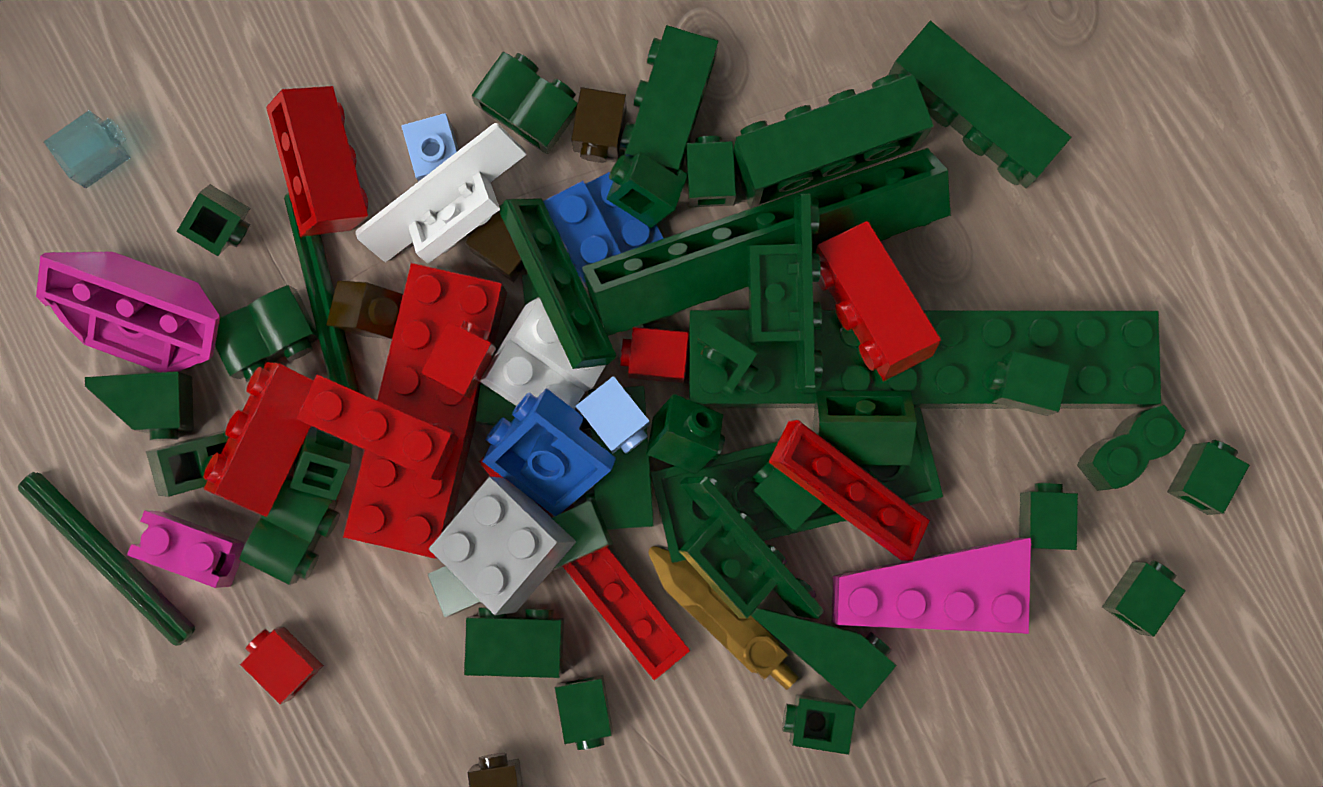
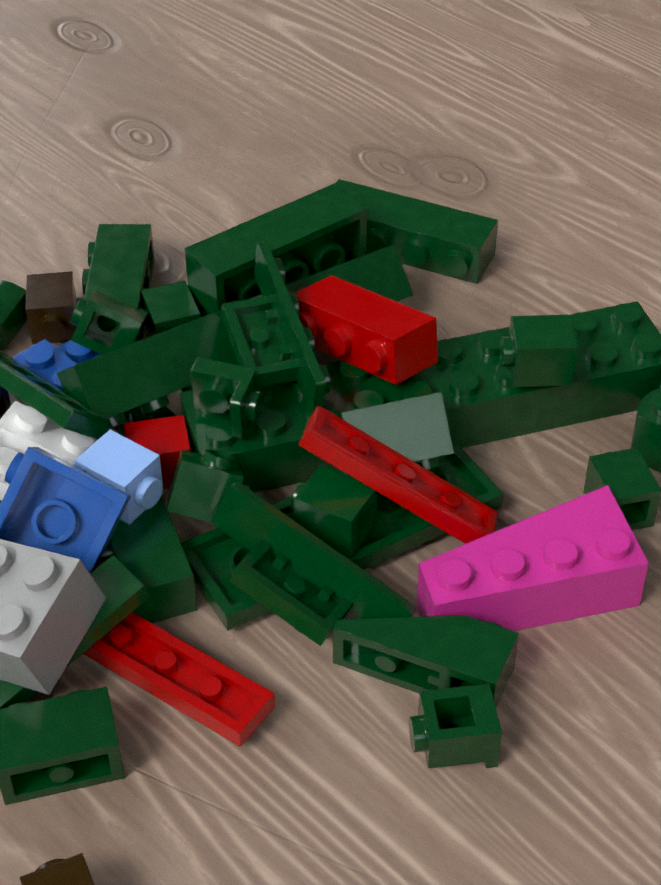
camera: 15 degrees left, 40 degrees down
(584, 712) = (161, 789): dark green brick -> none
(740, 636) = (308, 669): pearl gold piece -> none

